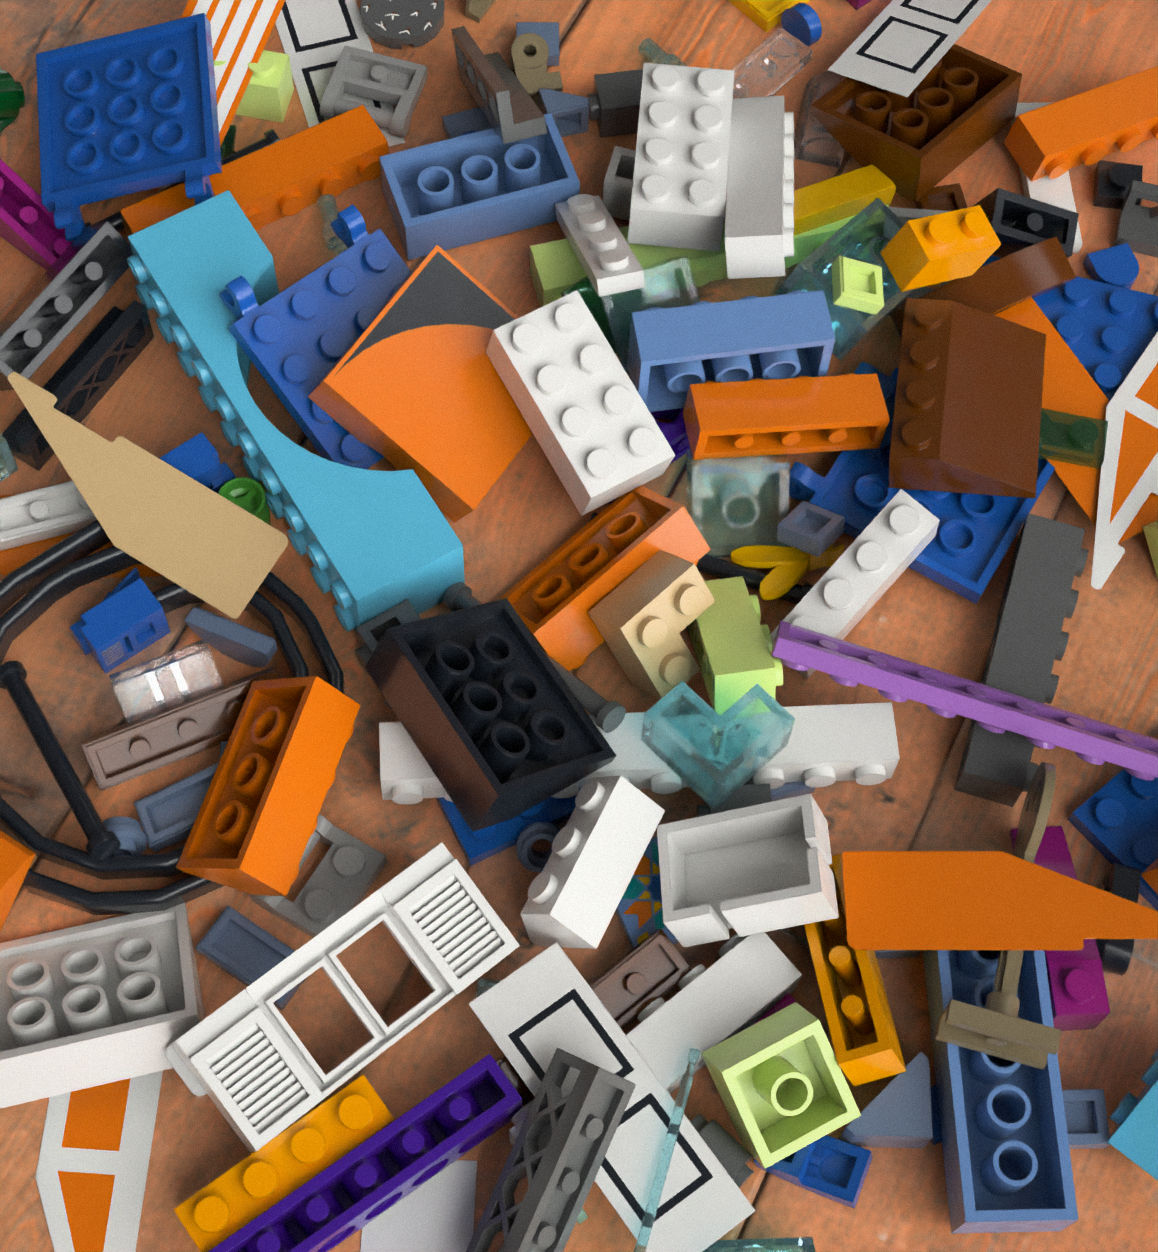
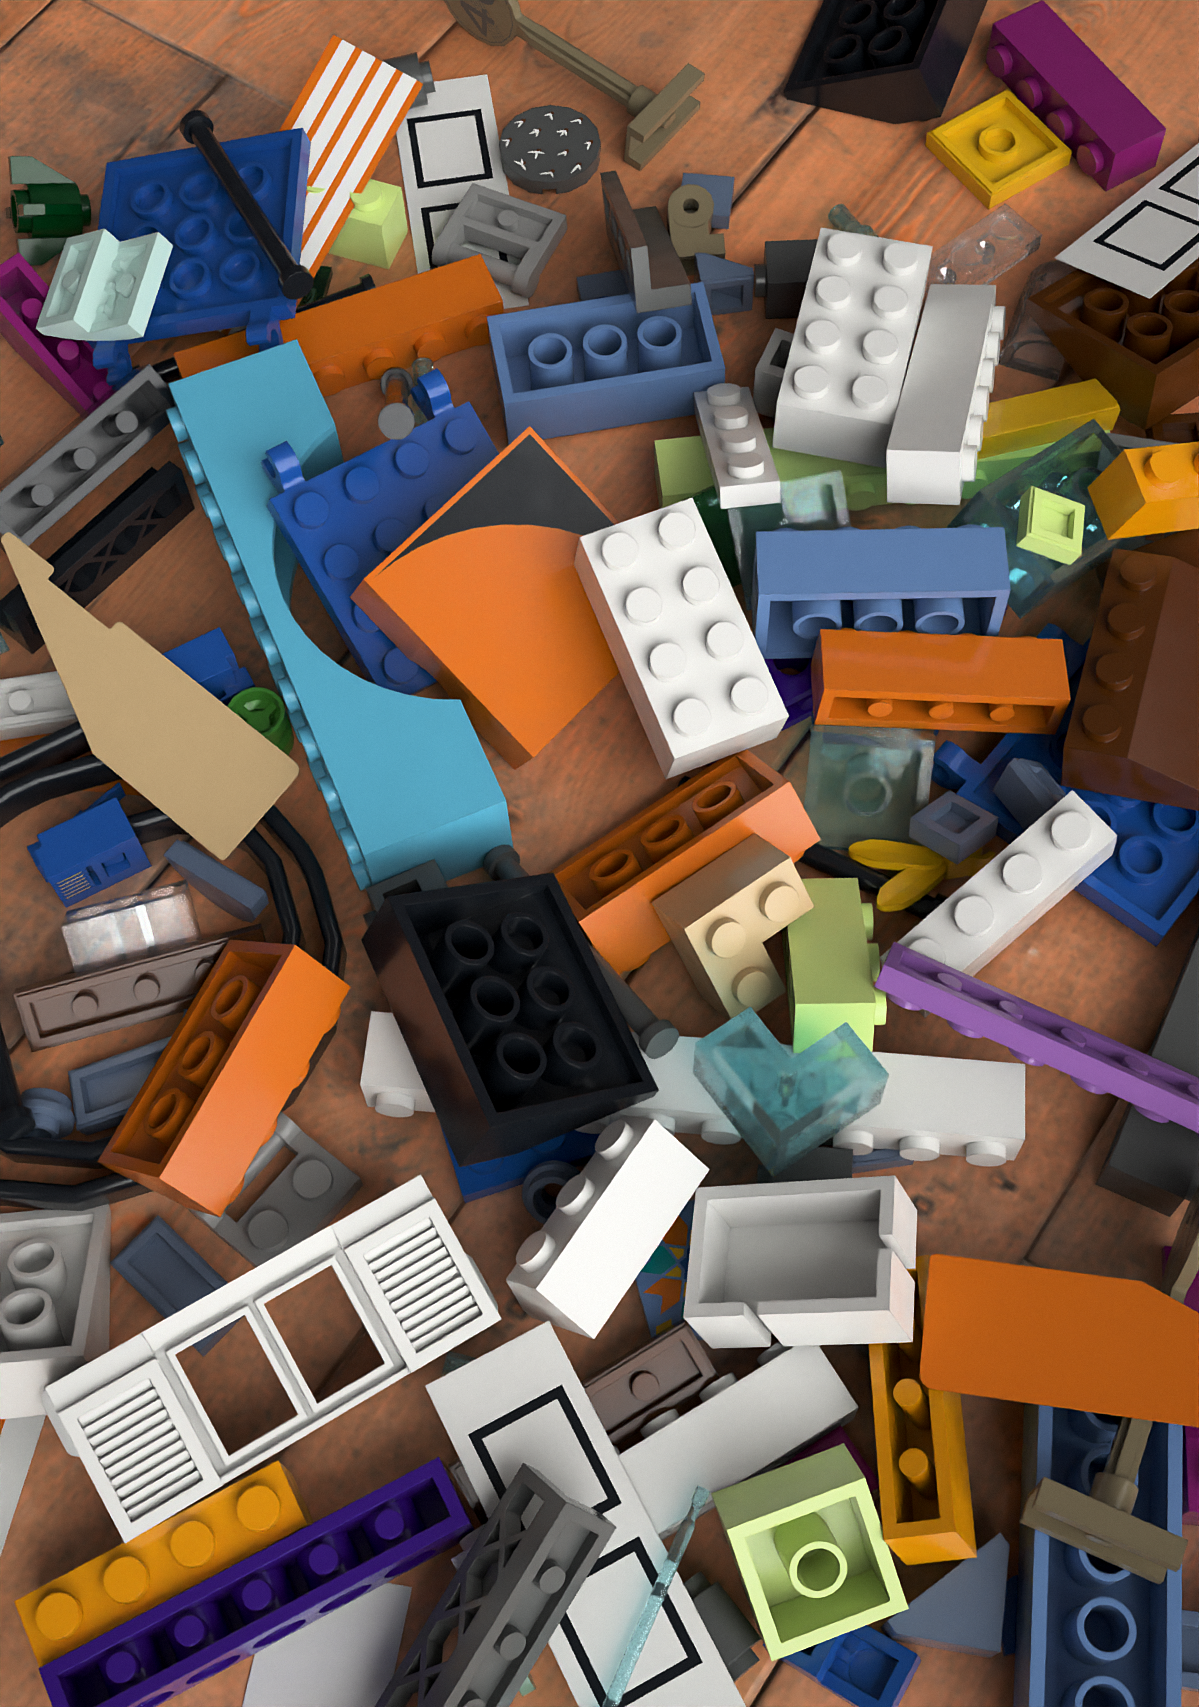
camera: 15 degrees right, 0 degrees up
(55, 160) = (104, 287): none -> light aqua slope
(220, 141) = (293, 279): none -> black bar
(331, 248) = (396, 417): none -> bar
(802, 23) = (1033, 201): blue tile -> none
(864, 495) = (1027, 791): none -> sand blue slope

